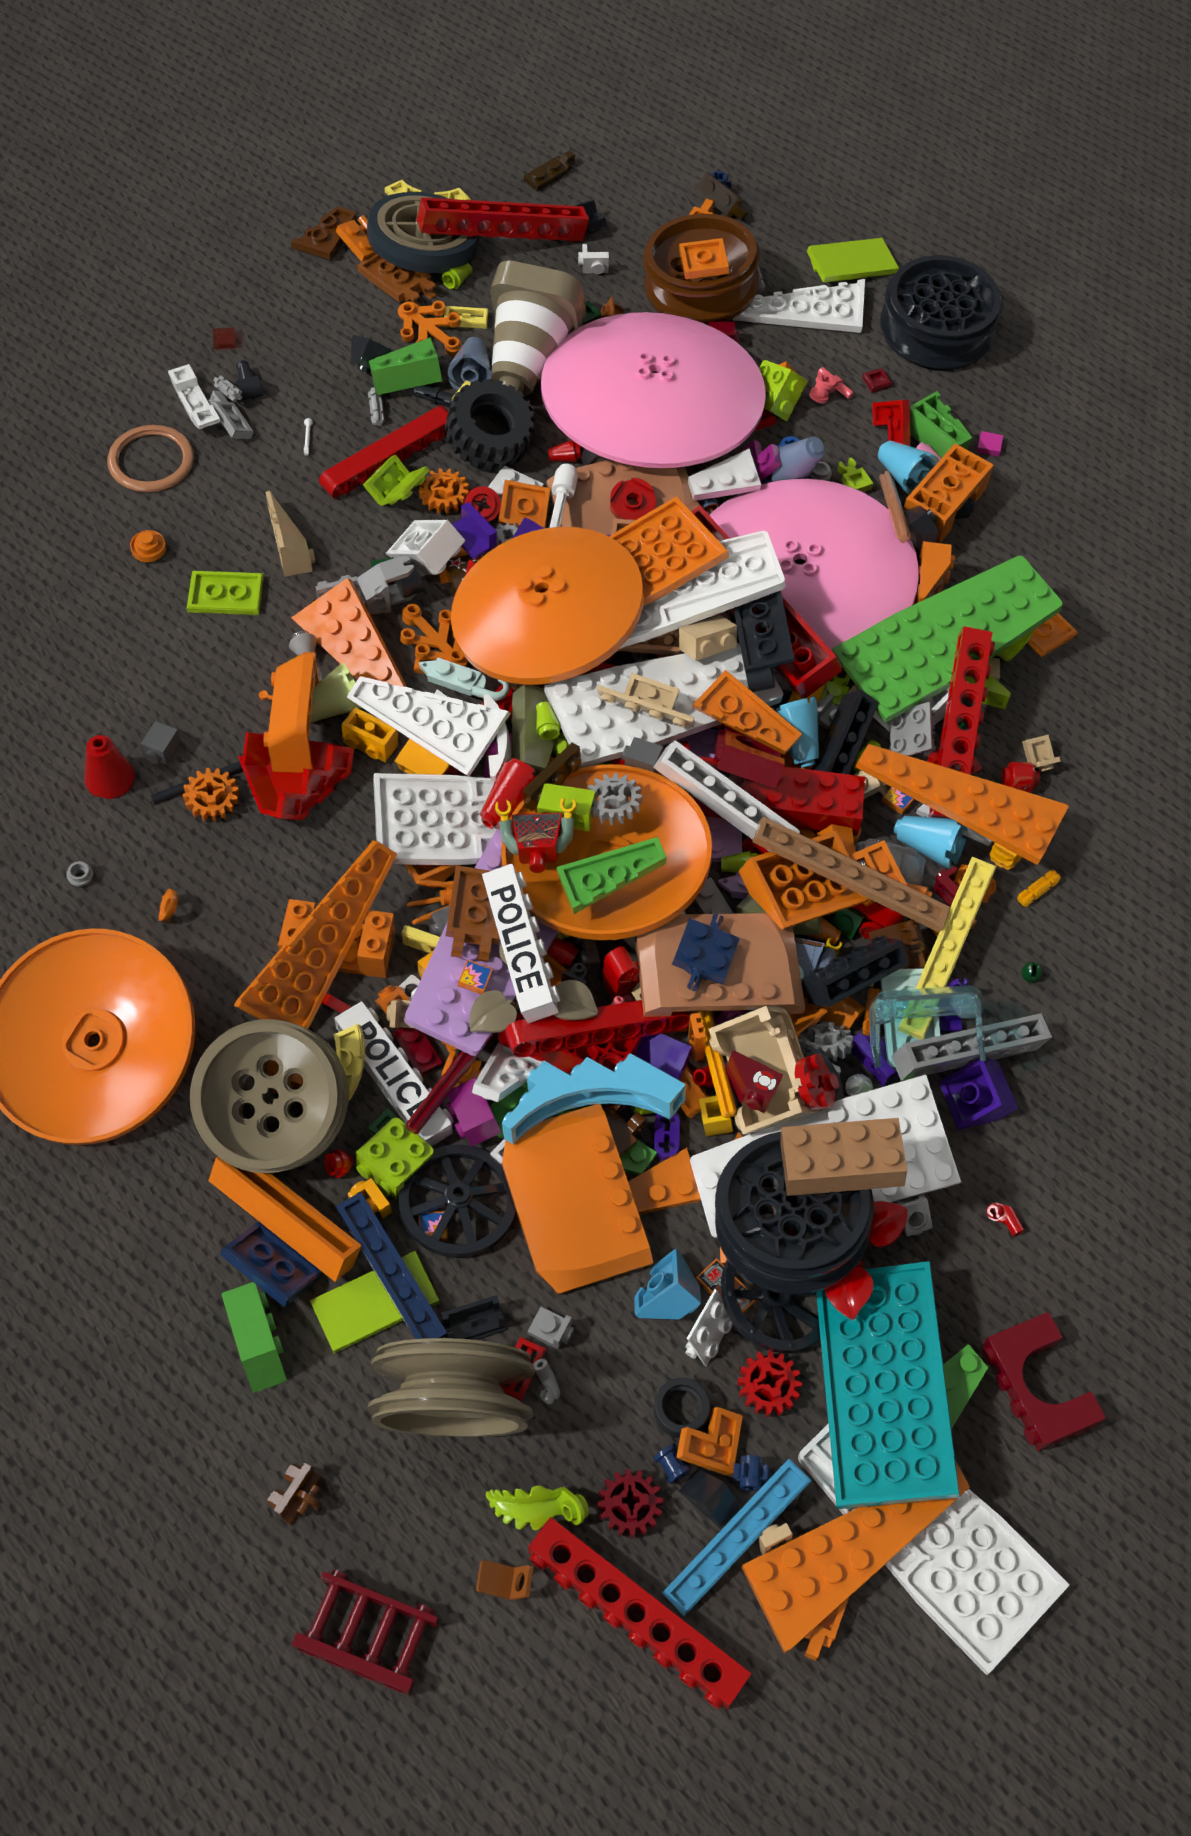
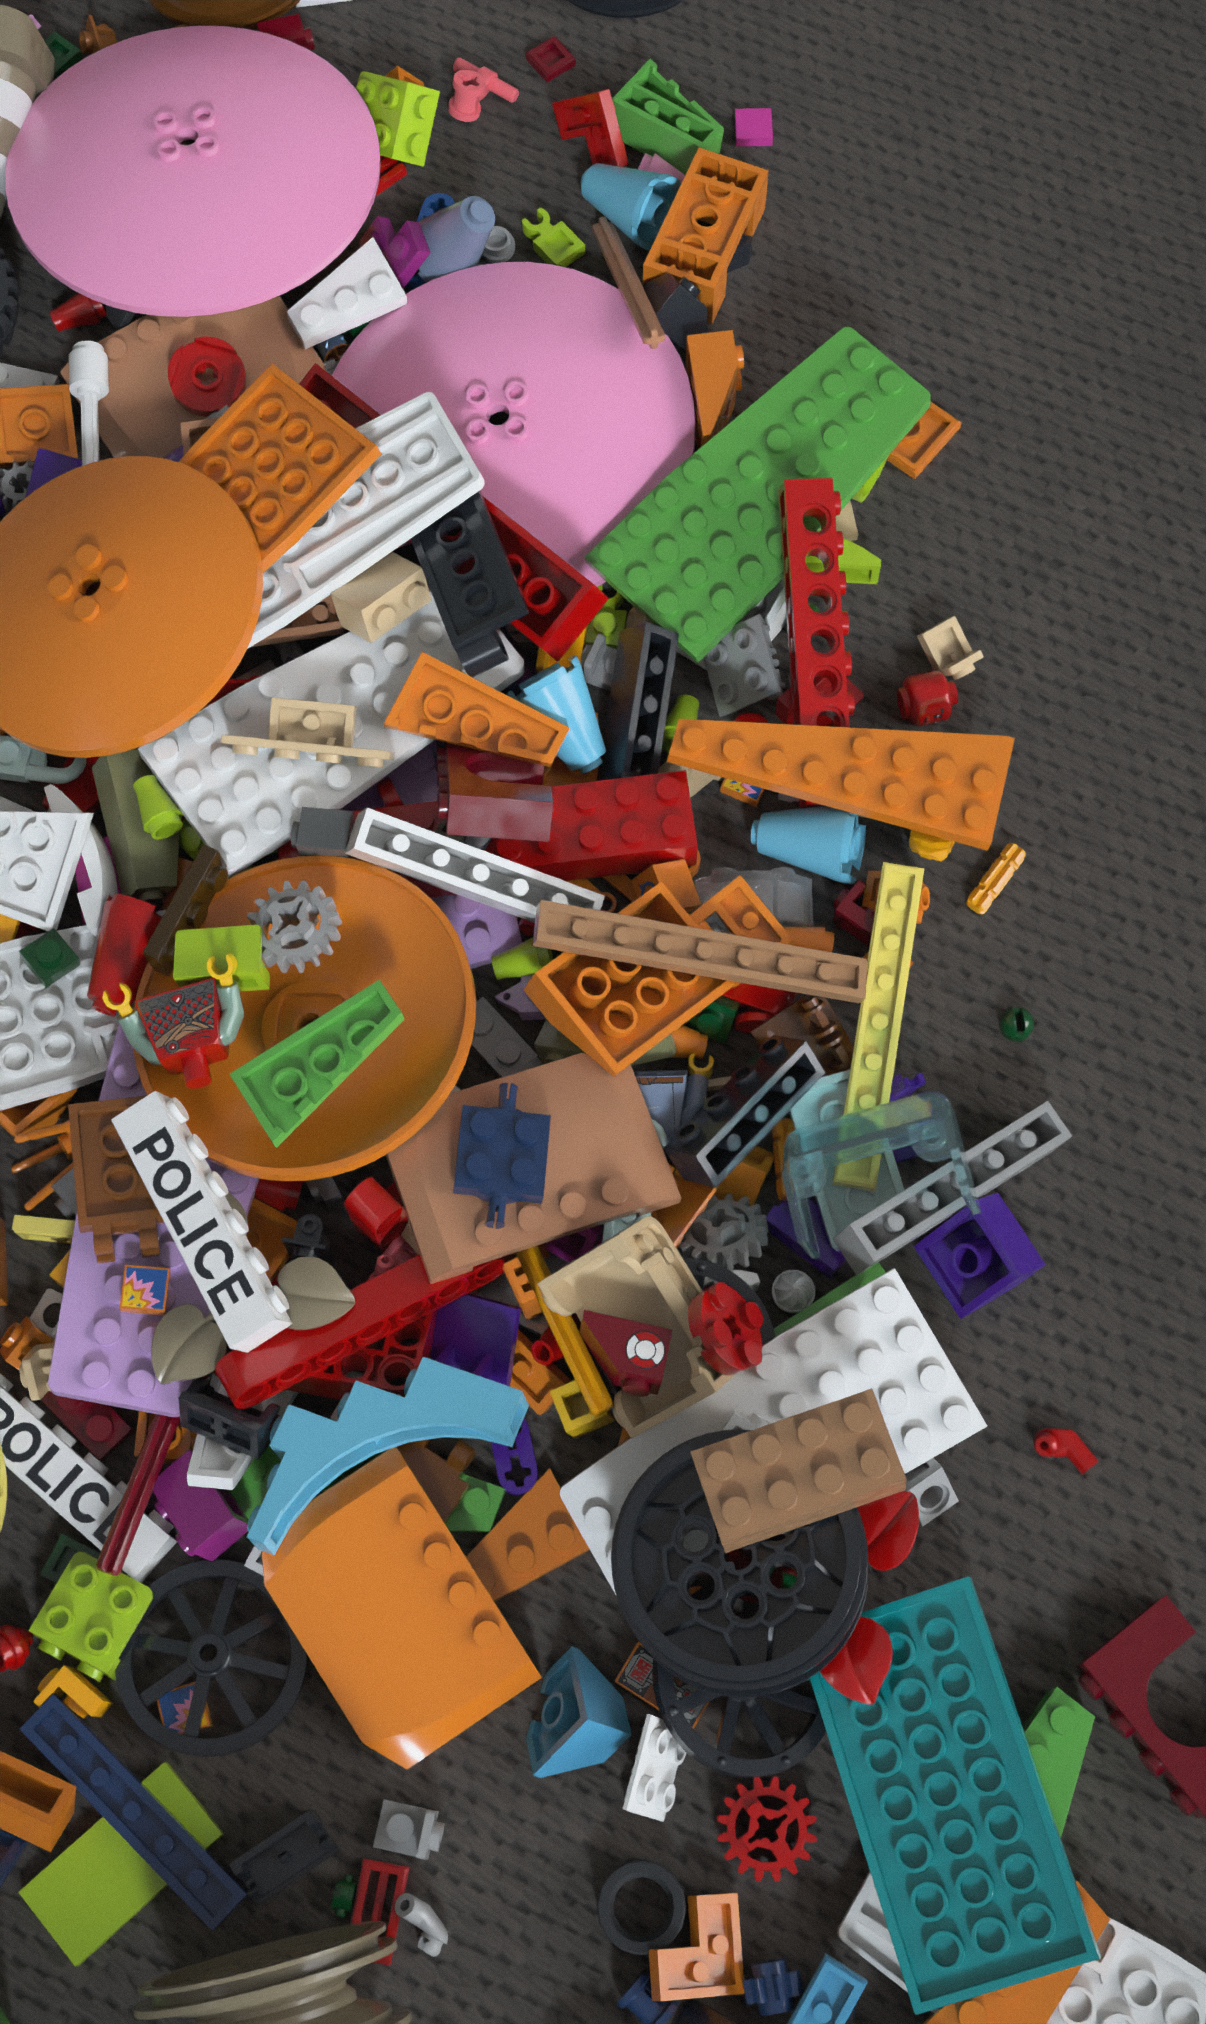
camera: 10 degrees left, 10 degrees up
(462, 789) = (49, 958): none -> dark green plate
(502, 1062) = (219, 1420): none -> black hinge

